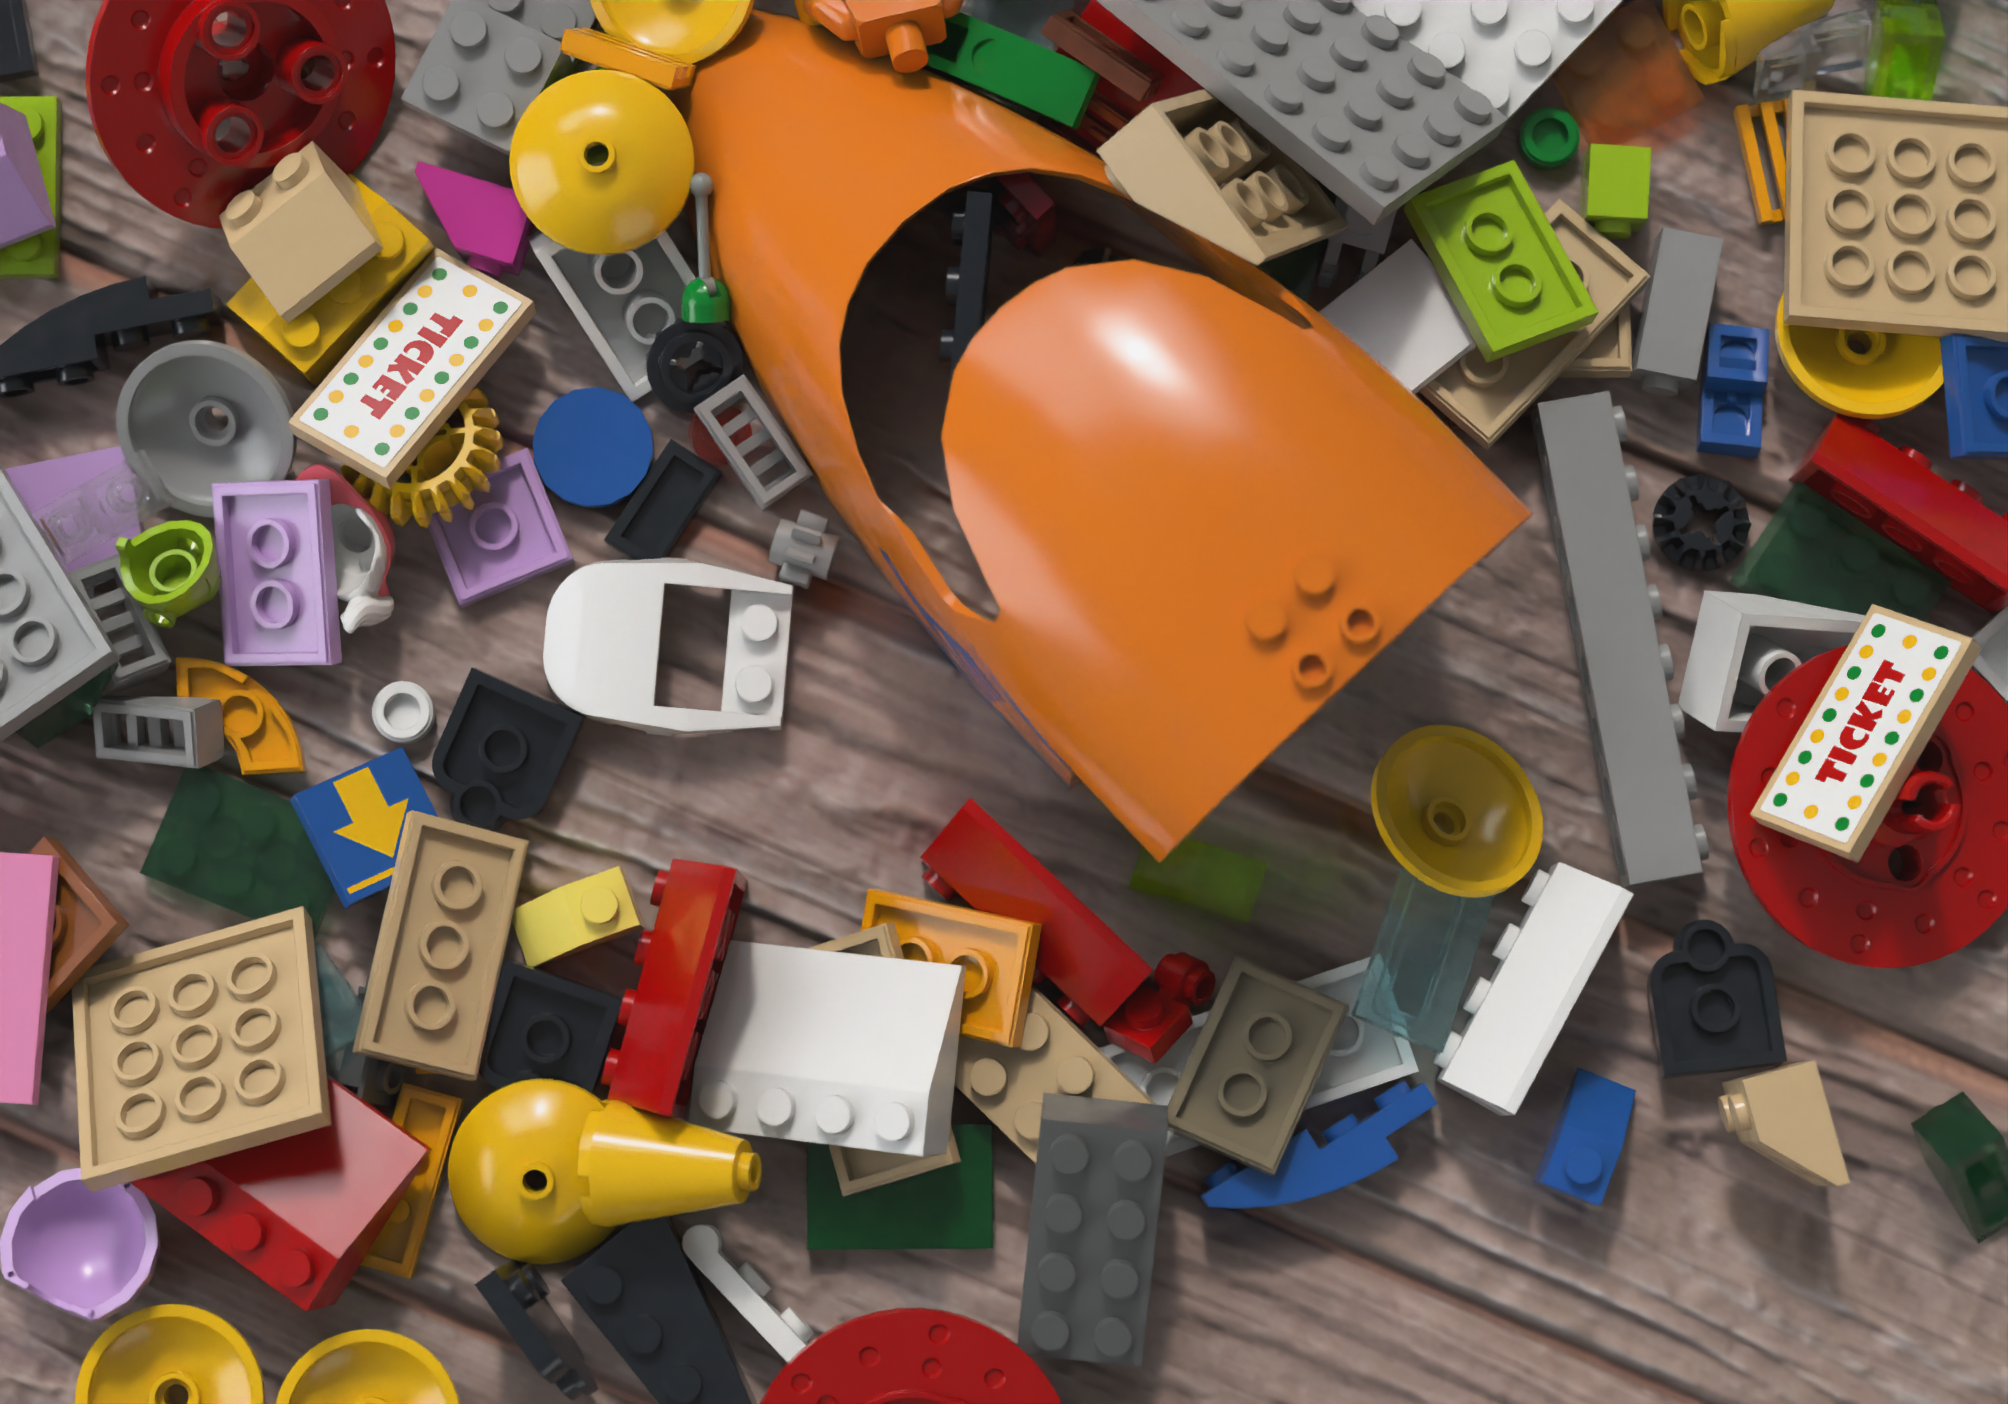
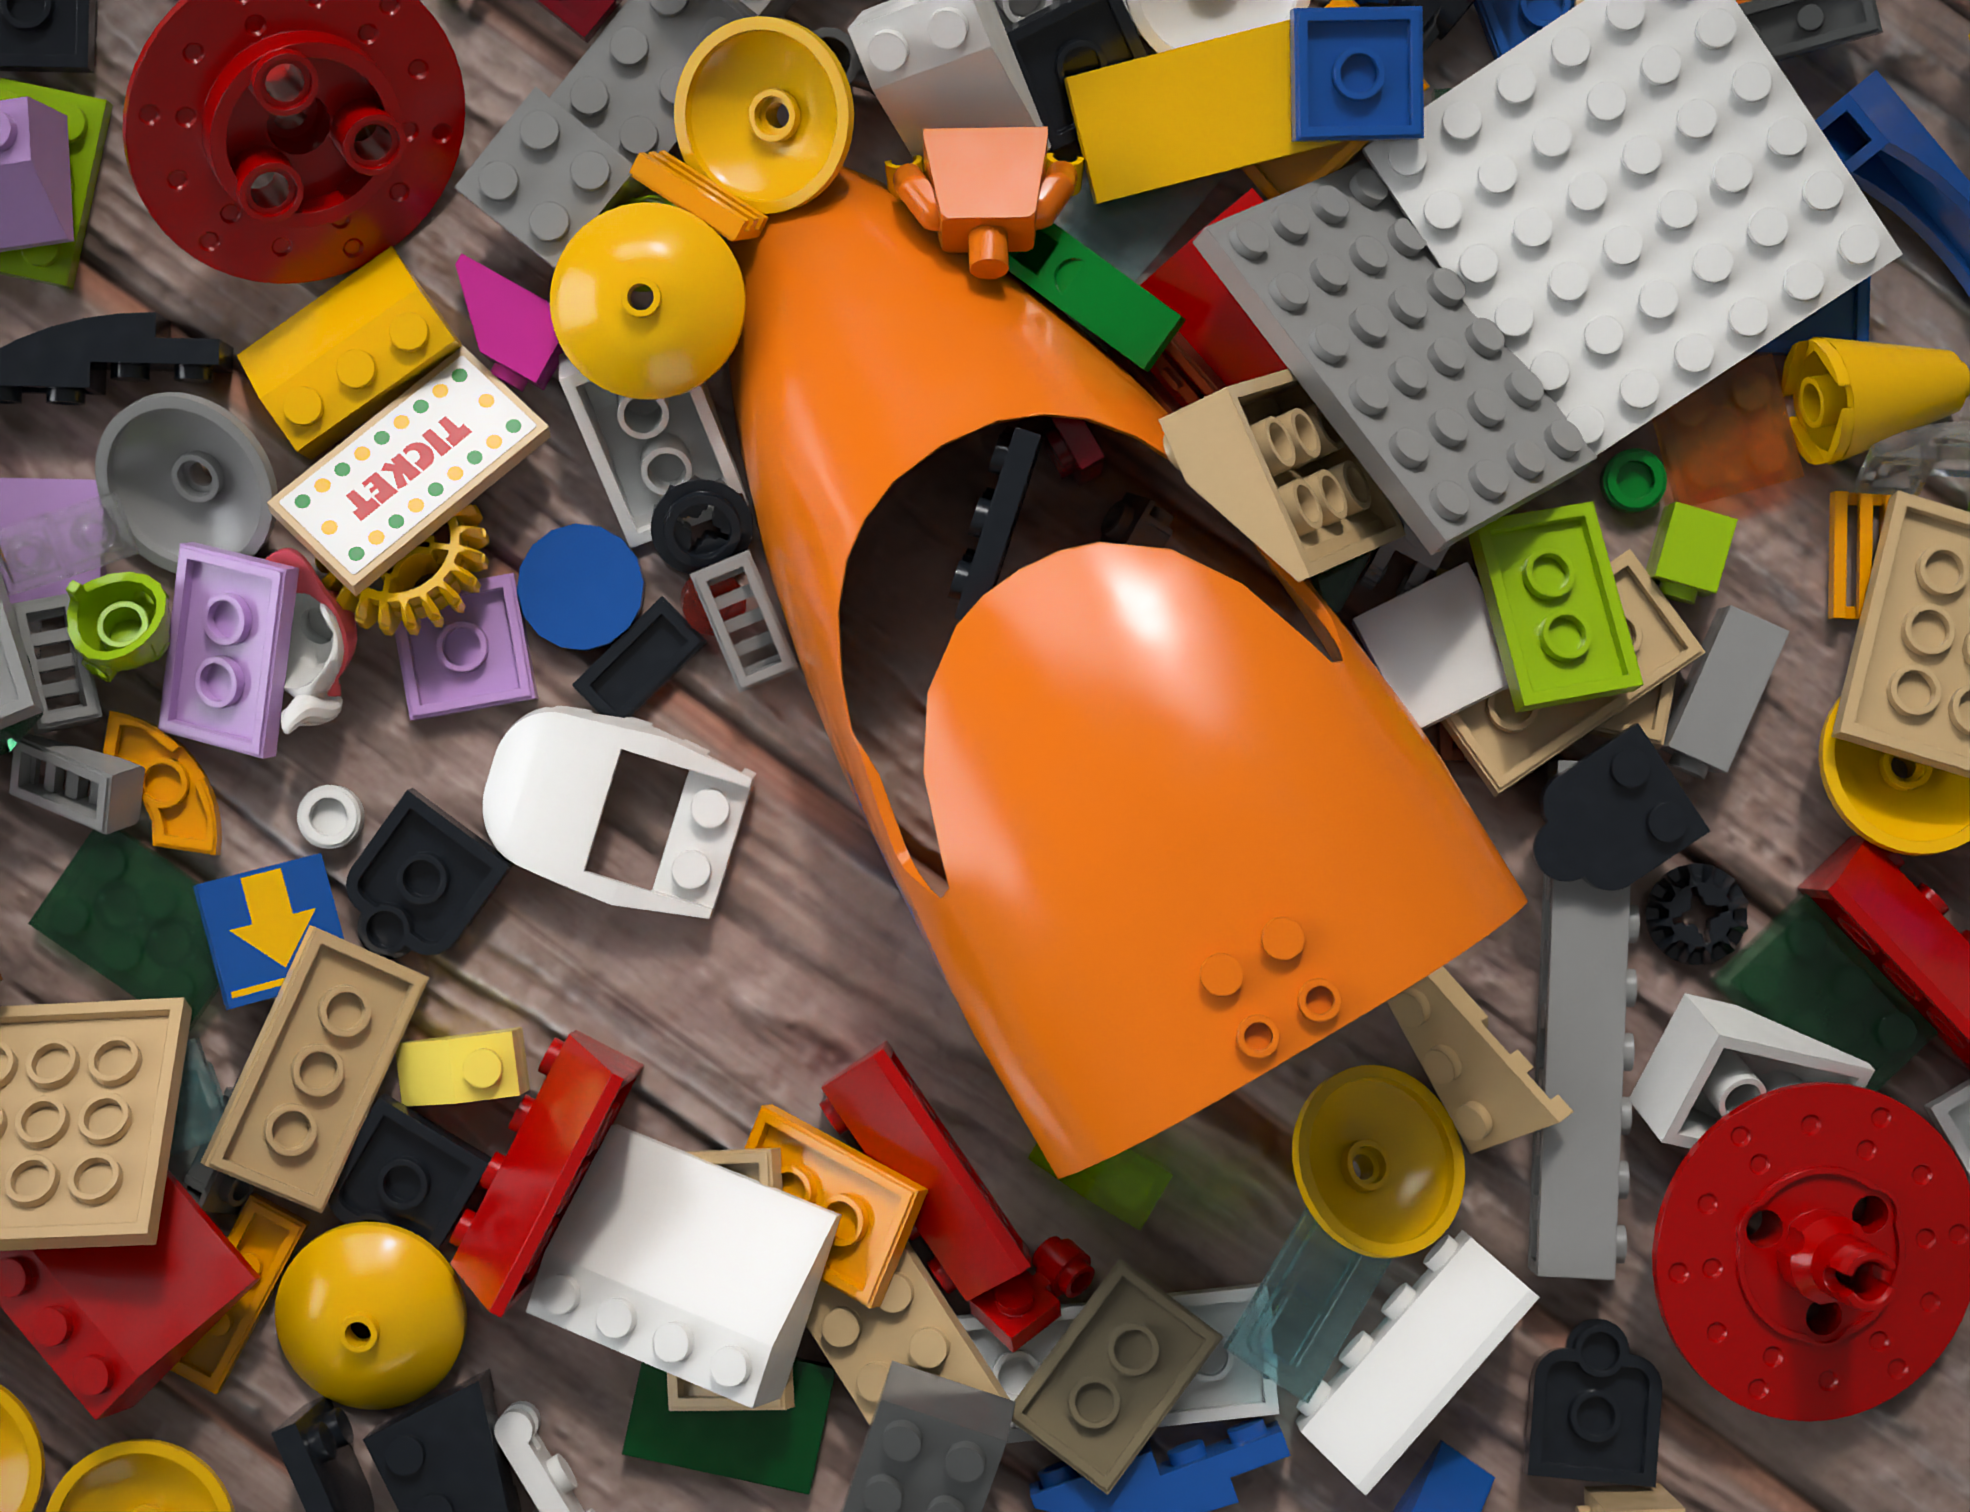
camera: 15 degrees right, 5 degrees up
(300, 230) = (323, 302): tan slope -> none
(659, 1166) = (480, 1360): yellow cone -> none
(704, 297) = (727, 462): hinge -> none
(804, 549) = (772, 742): light grey gear -> none
(1103, 55) = (1191, 299): copper tile -> none
(1521, 707) = (1469, 1068): none -> tan wing
(1600, 441) = (1614, 815): none -> black plate
(1732, 390) = (1760, 785): blue slope -> none
(1865, 732) = (1817, 1186): tile -> none

